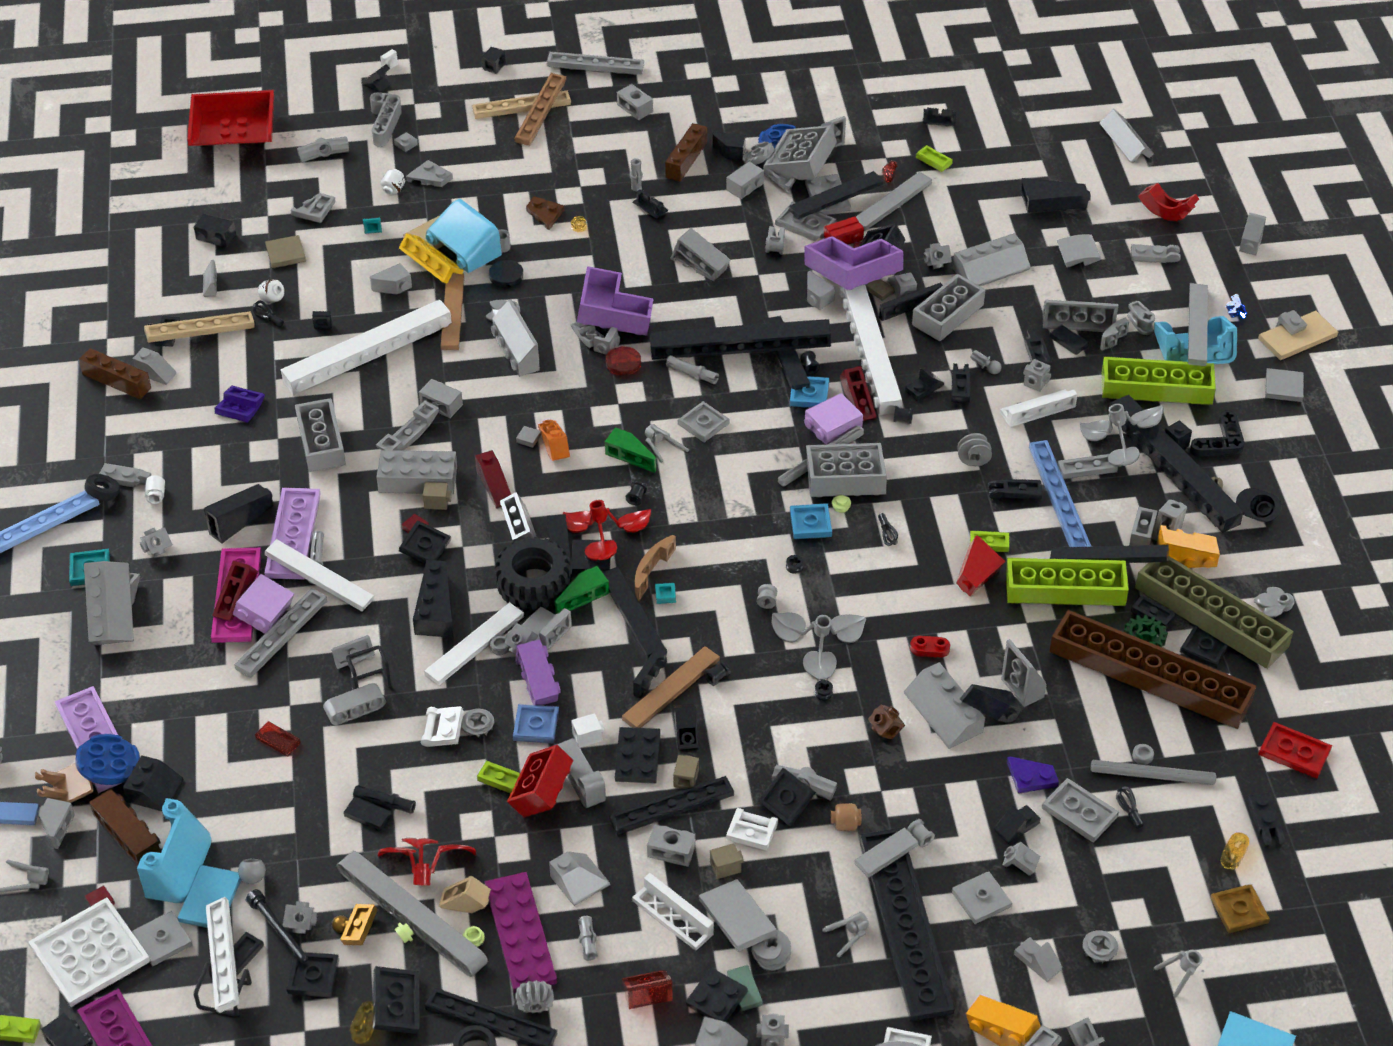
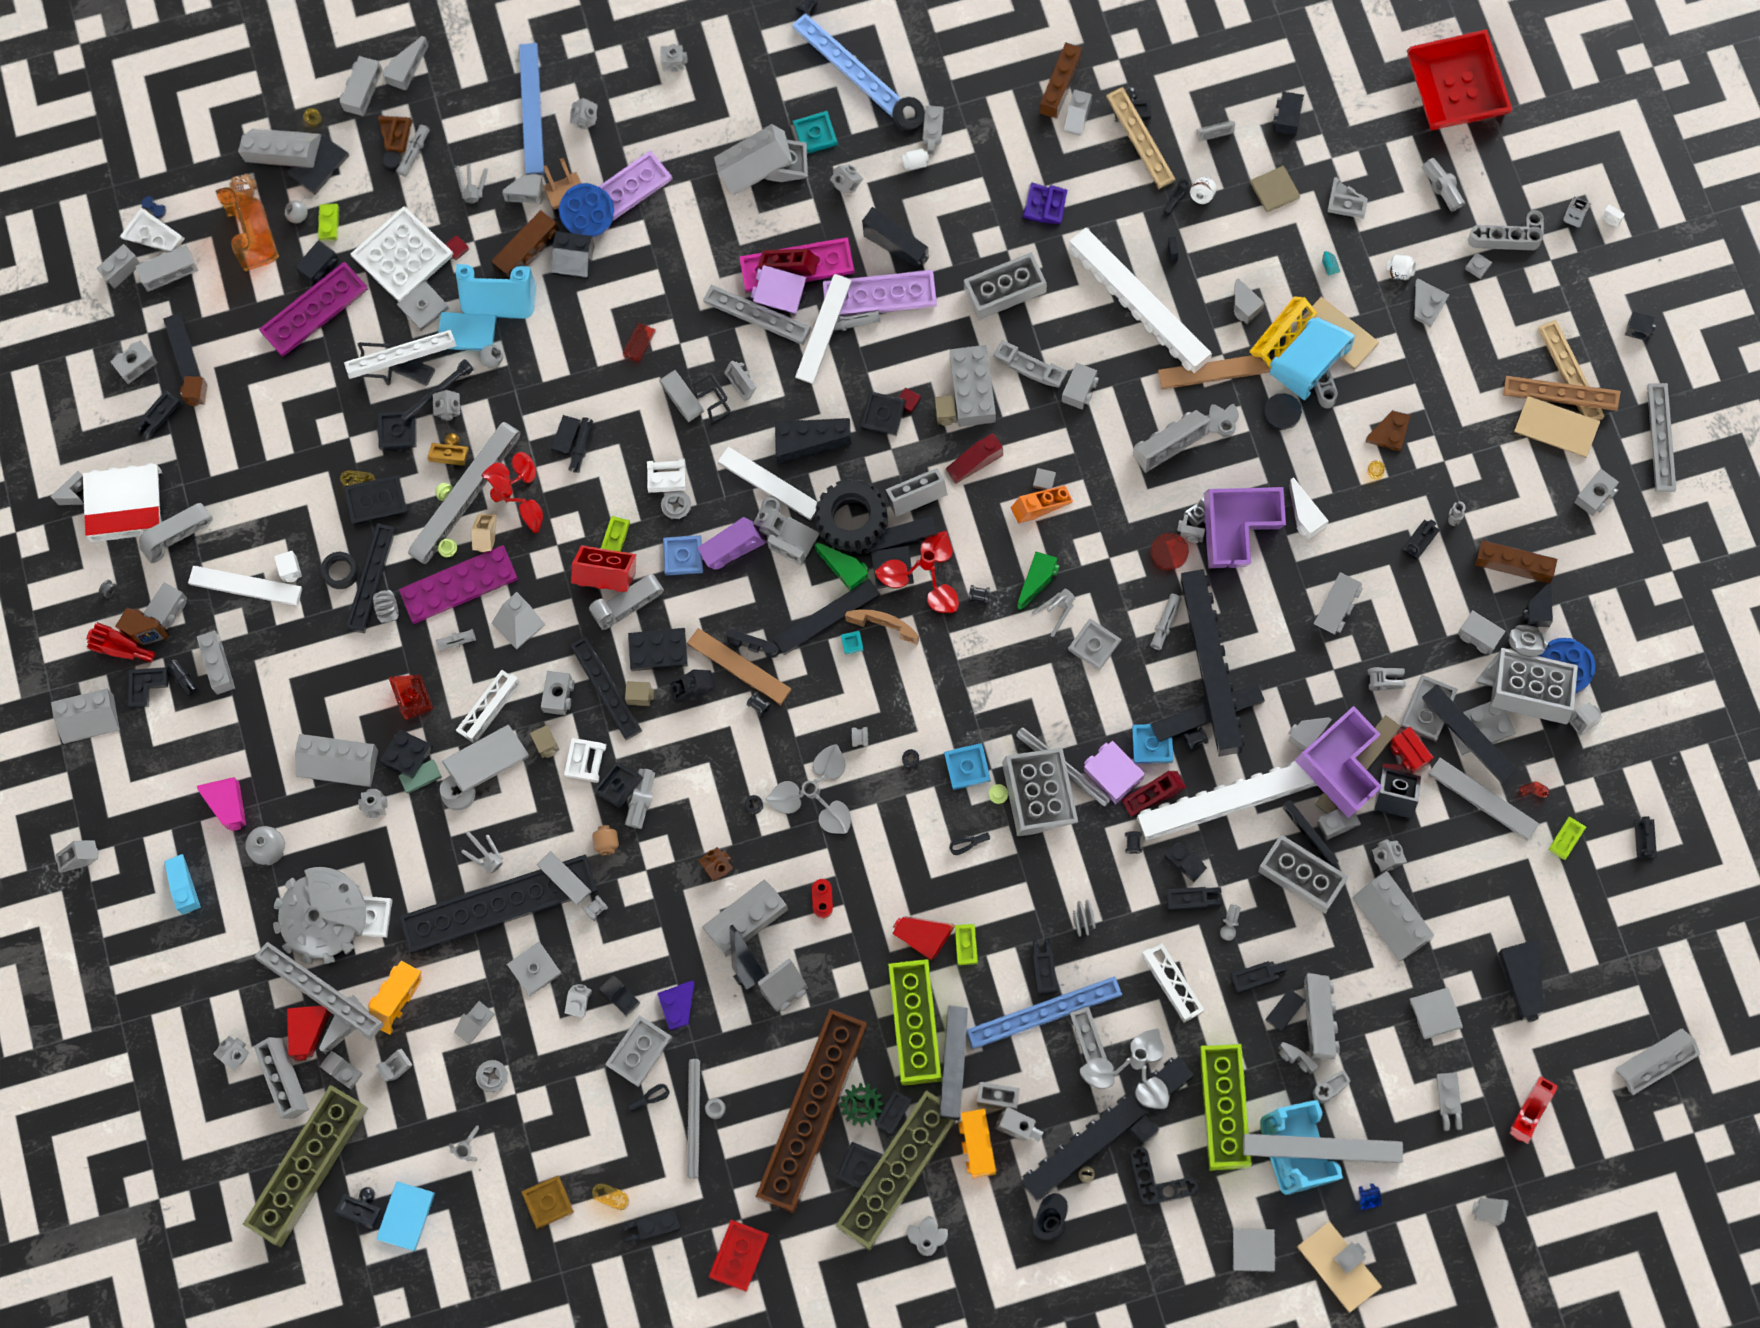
camera: 90 degrees right, 25 degrees up
(569, 116) = (1557, 426): none -> tan tile
(587, 730) = (675, 600): white brick -> none
(615, 262) = (1307, 515): none -> white slope
(1036, 375) = (1211, 983): light grey brick -> none

